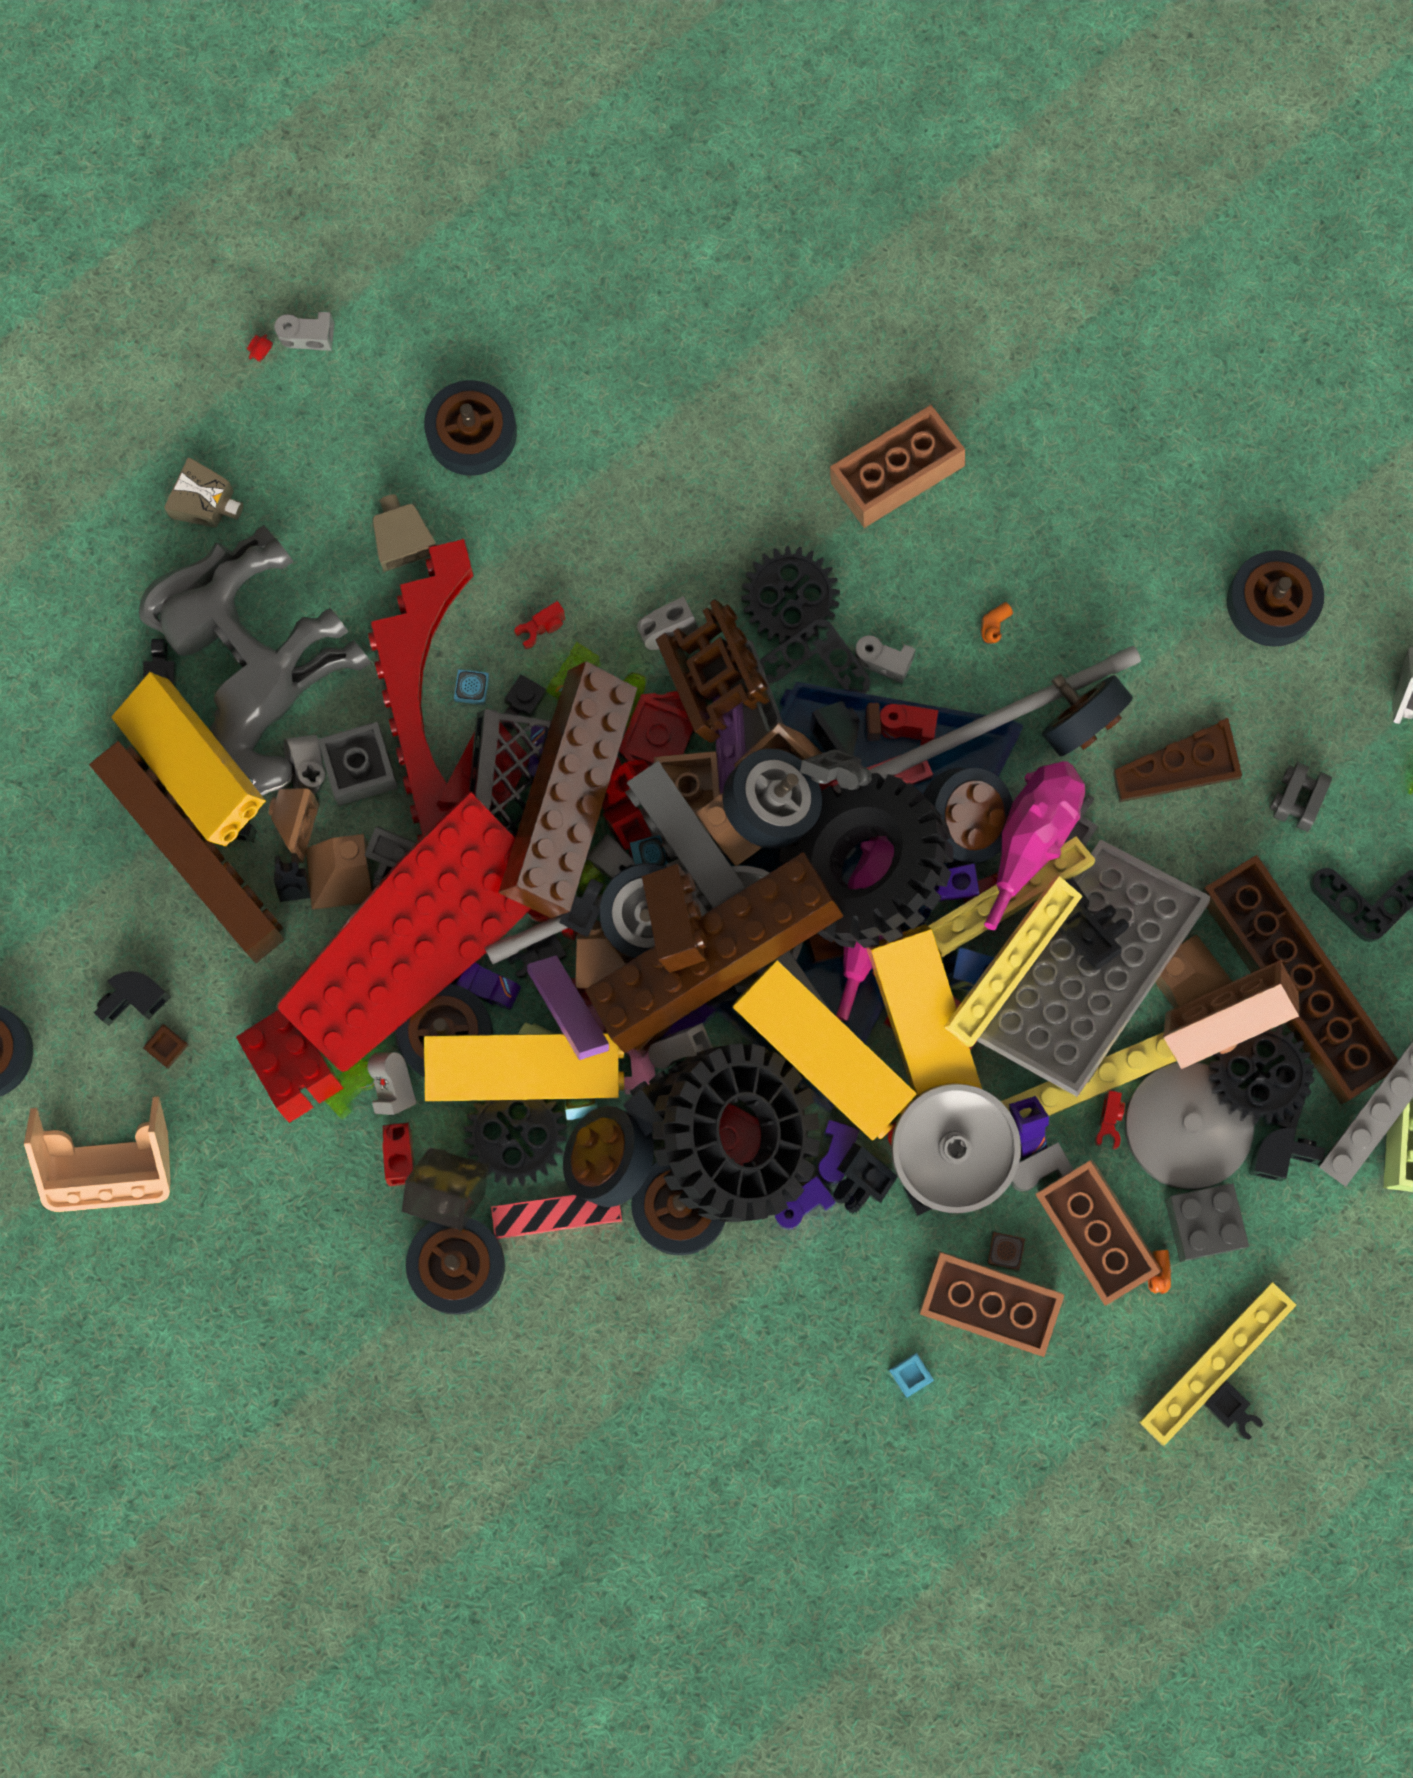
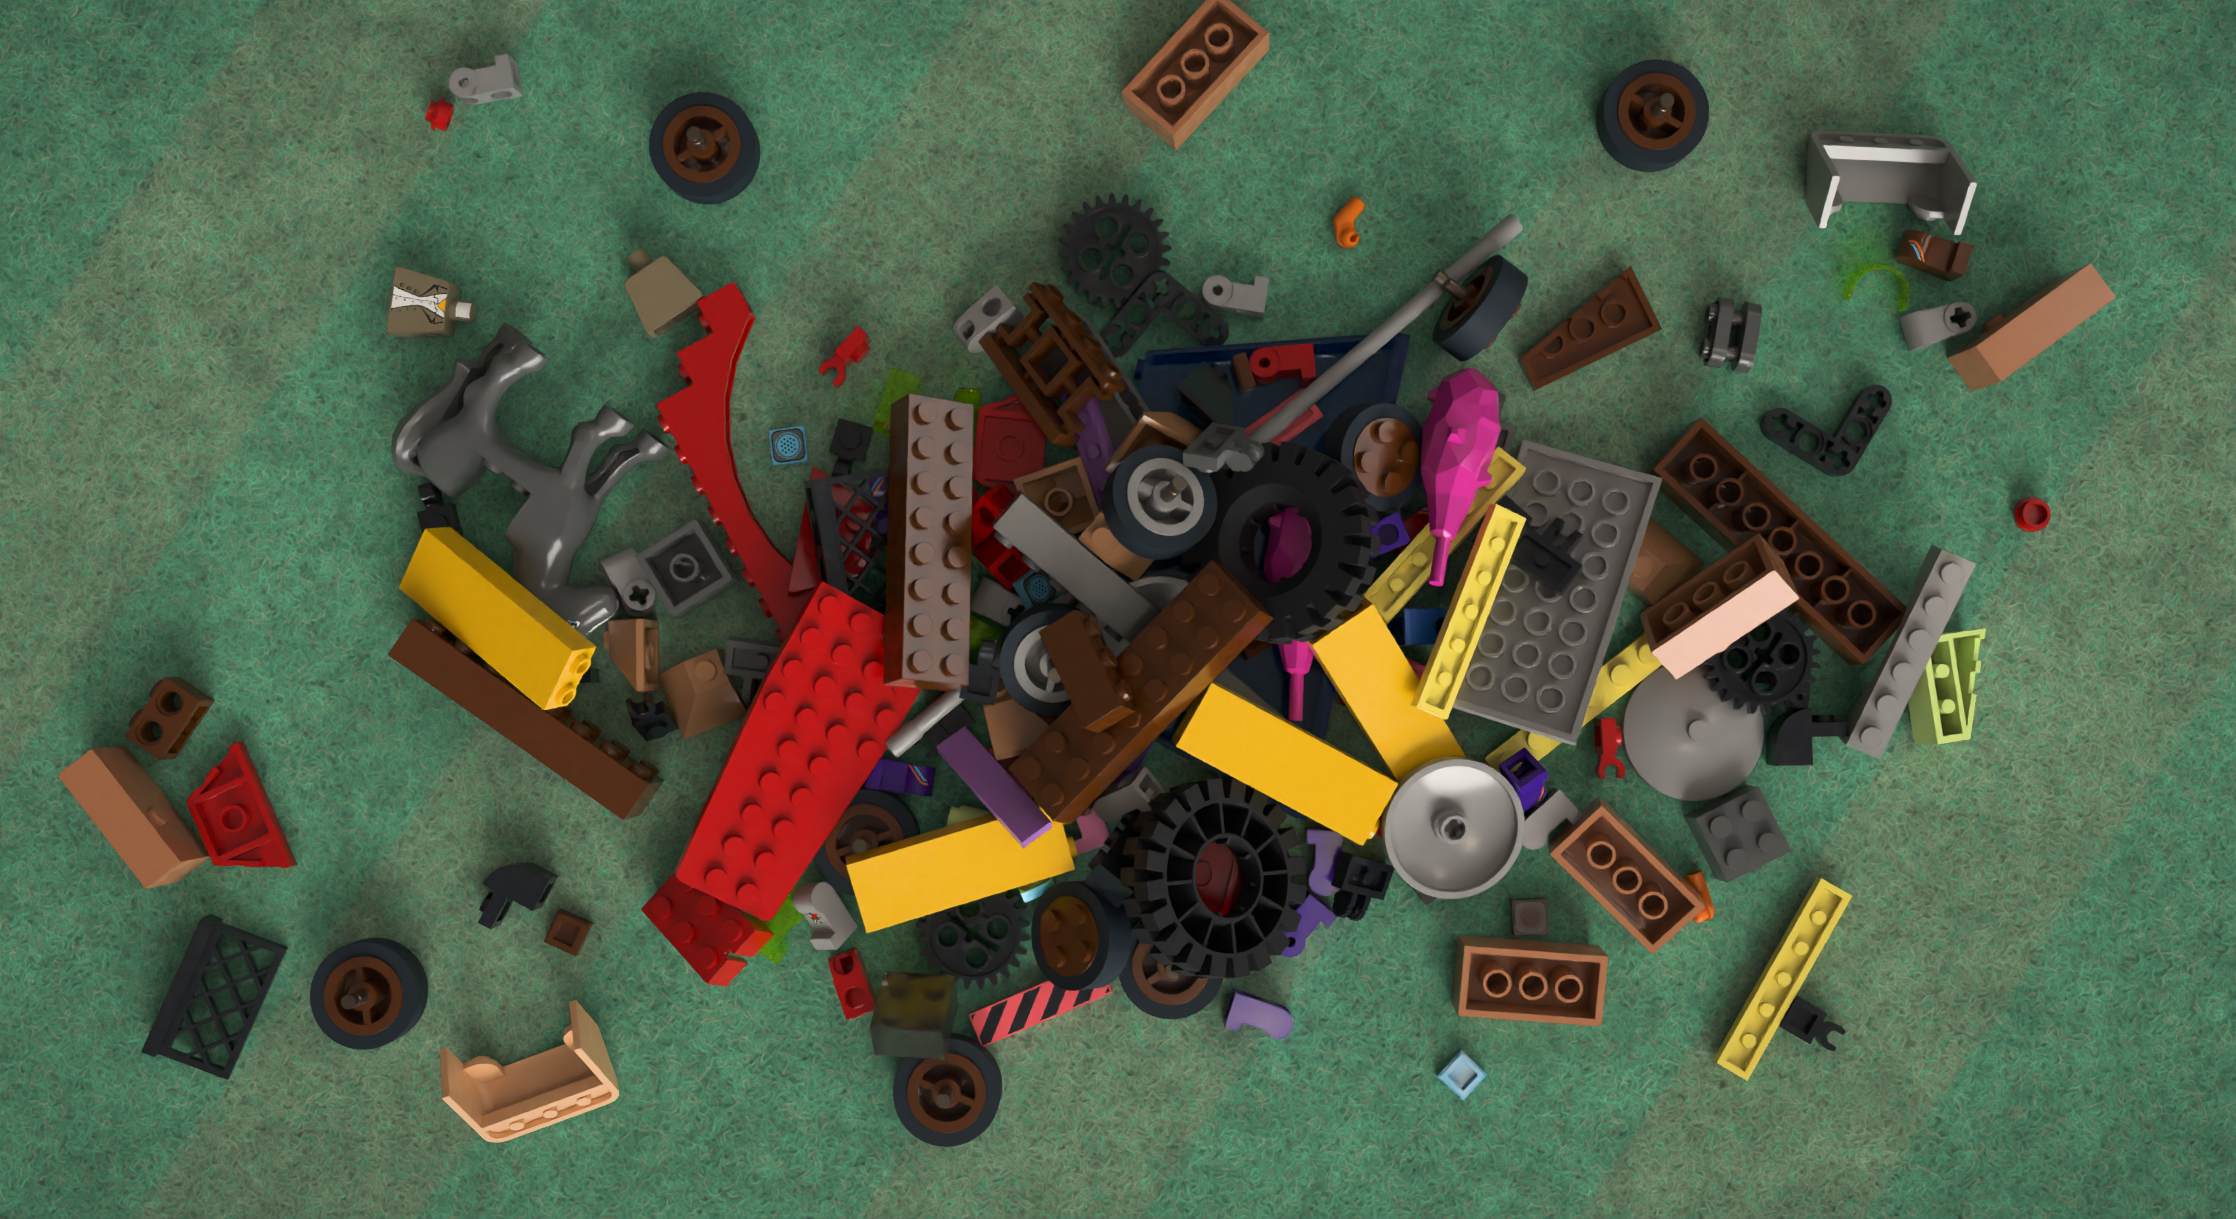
camera: 15 degrees left, 10 degrees up
(746, 1271) = (1260, 1013): none -> leg

